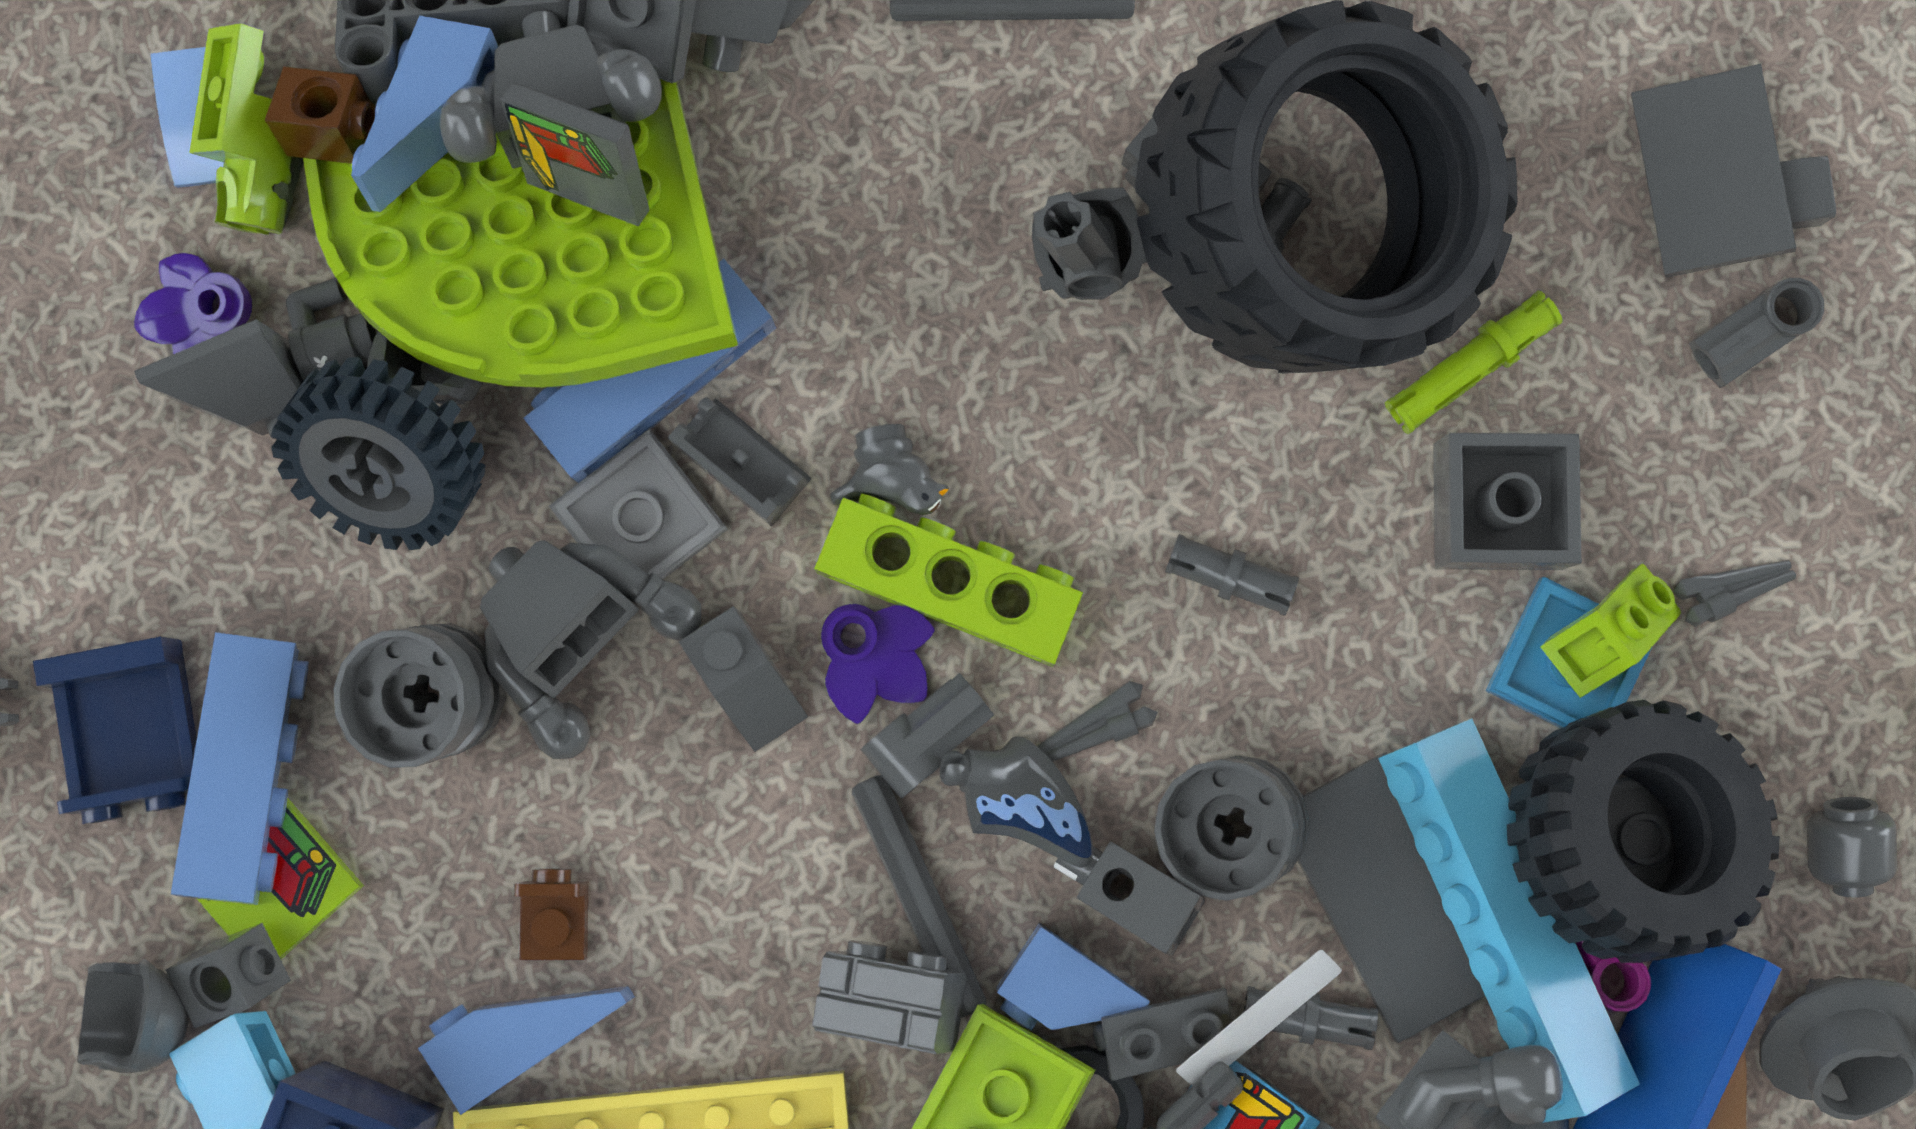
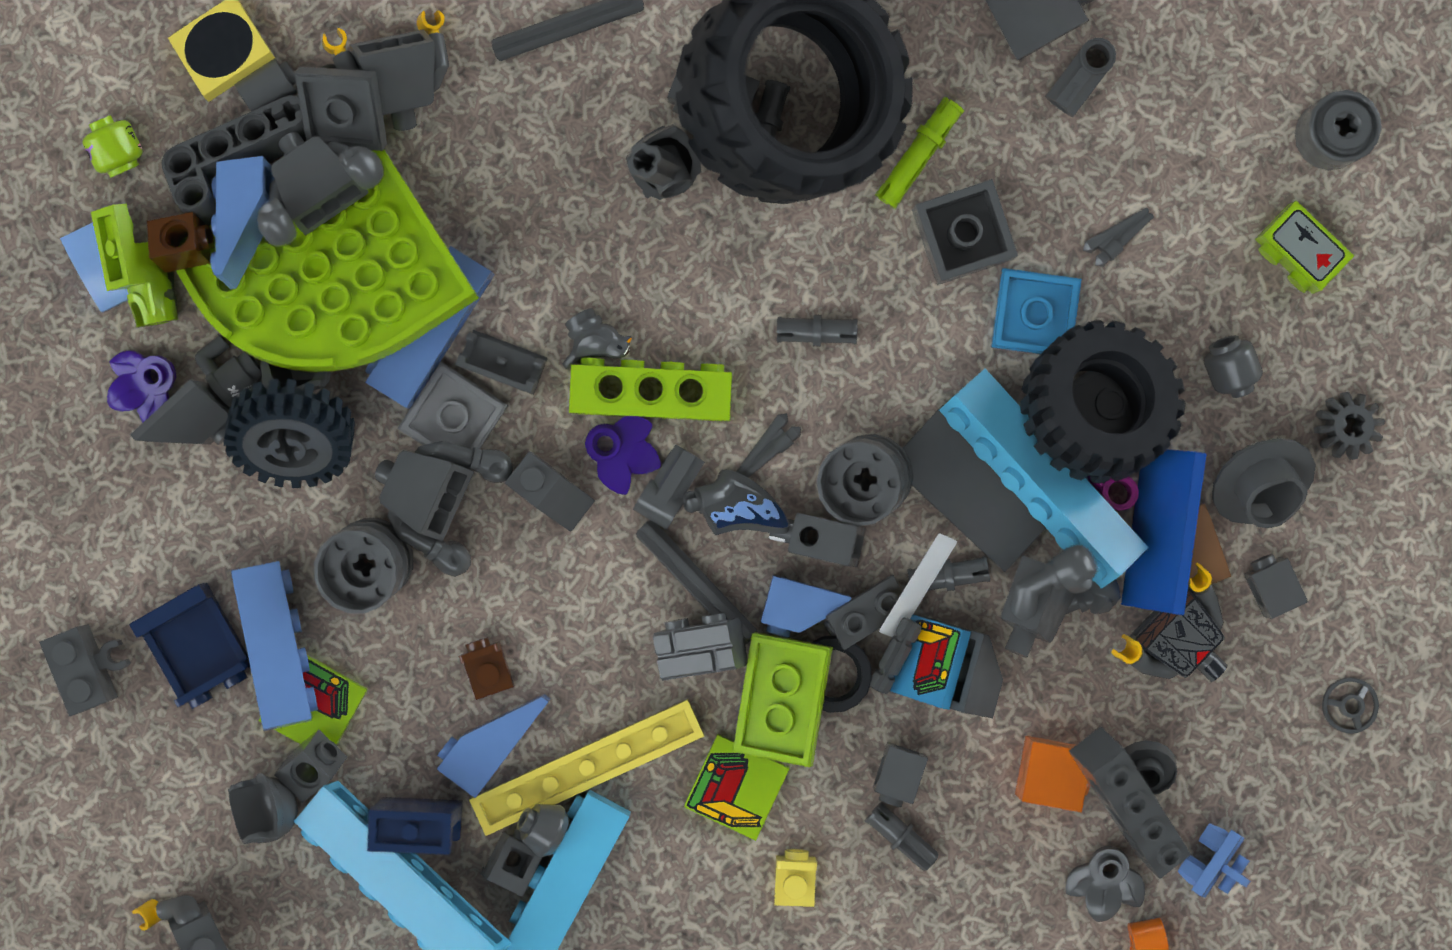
camera: 20 degrees left, 5 degrees up
(576, 153) = (344, 217): dark grey tile -> none
(1614, 632) = (1053, 286): lime bracket -> none

